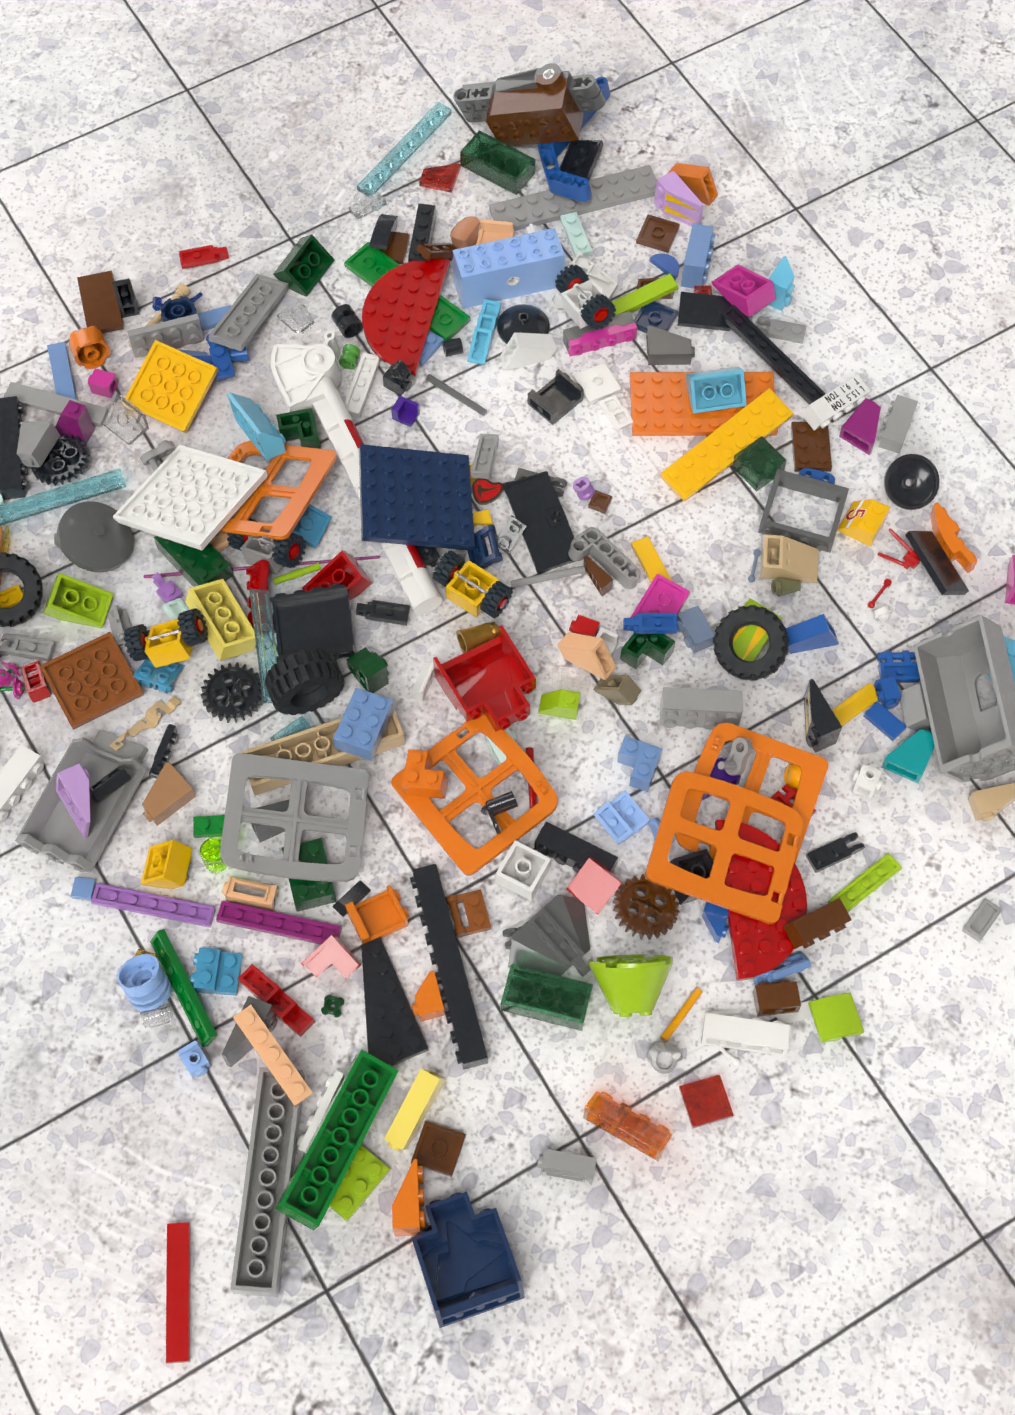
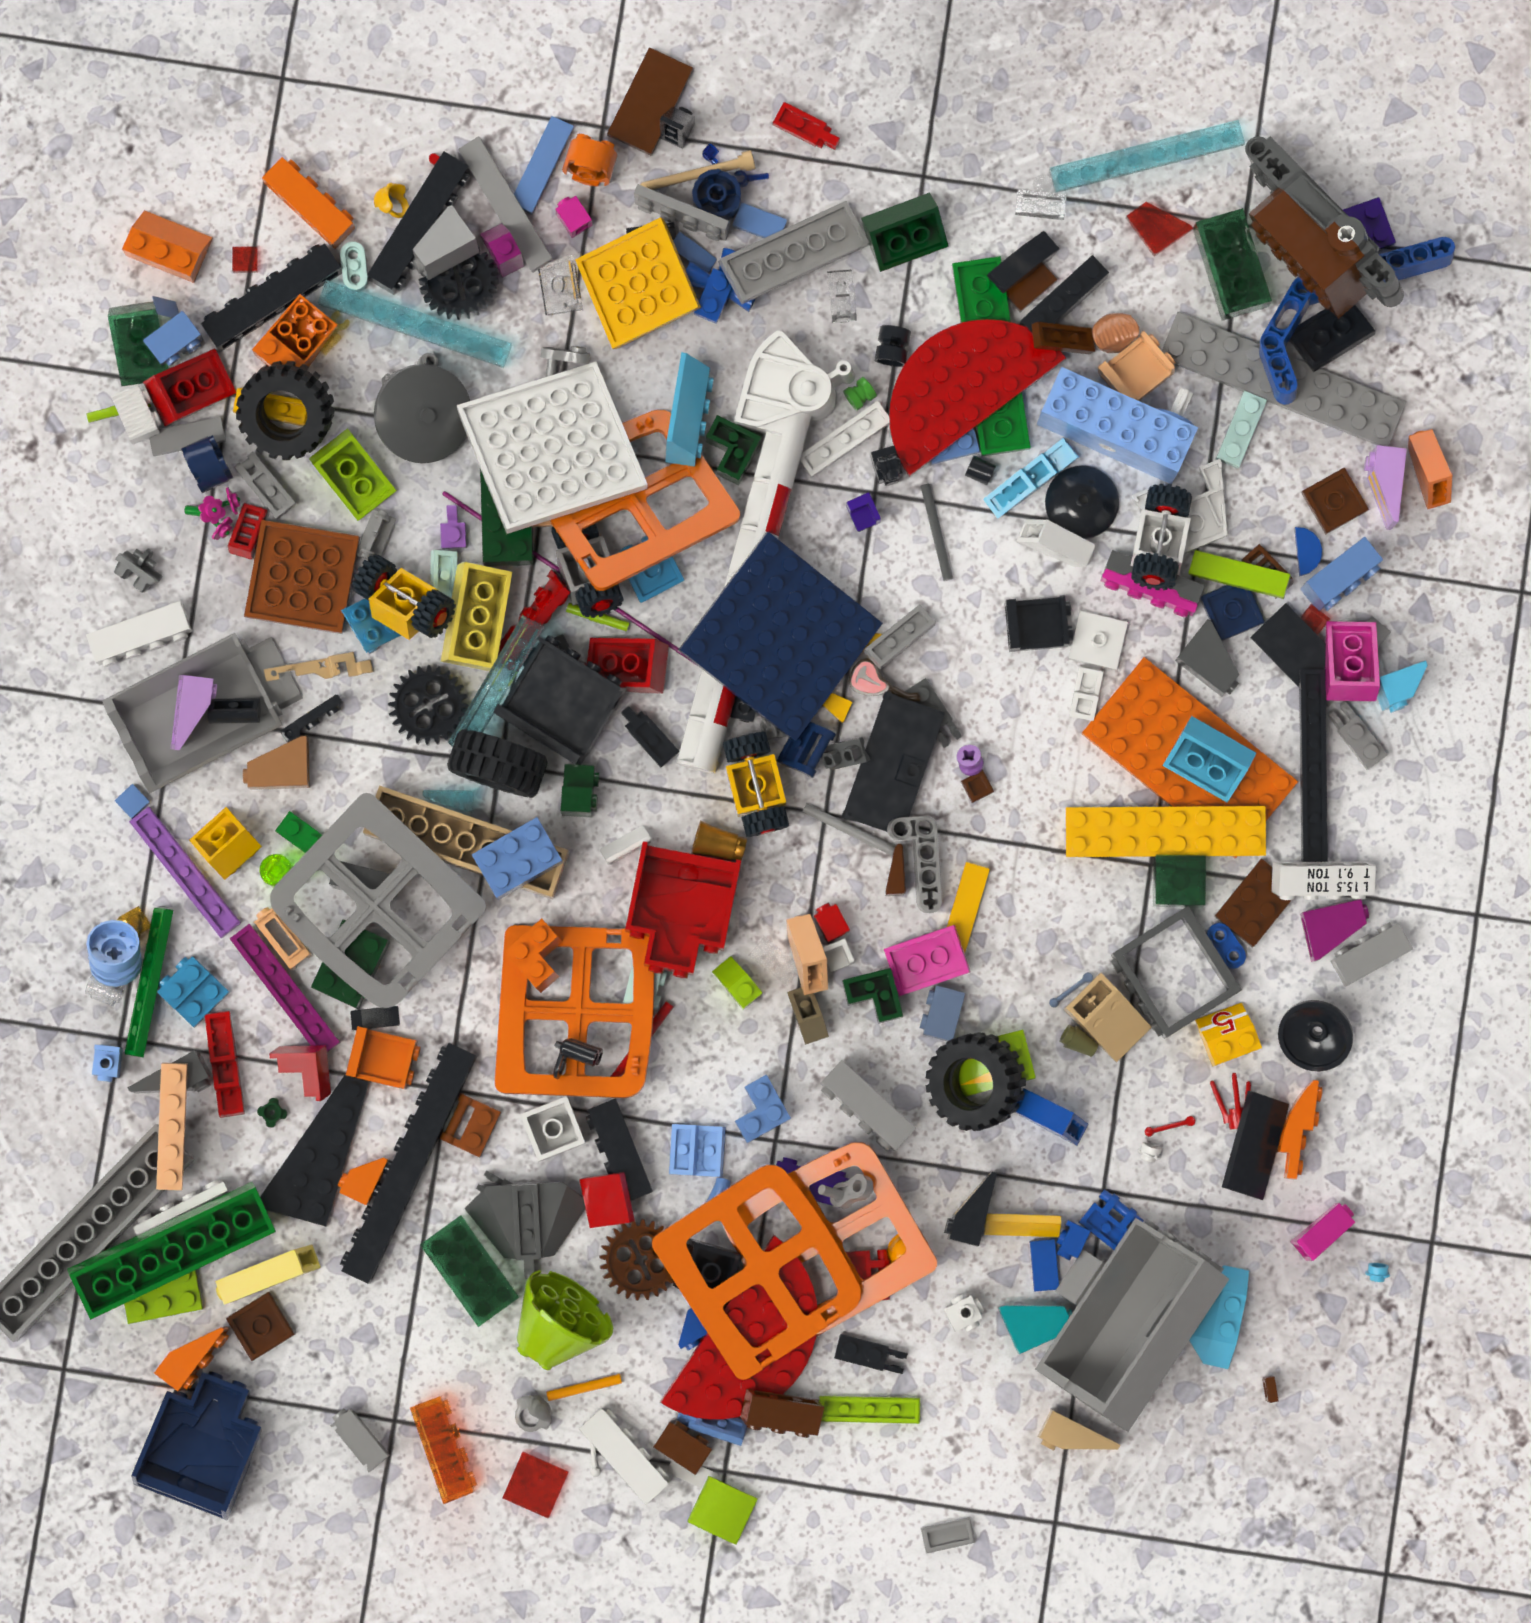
camera: 35 degrees right, 20 degrees up
(652, 623) = (894, 981): blue hinge -> none

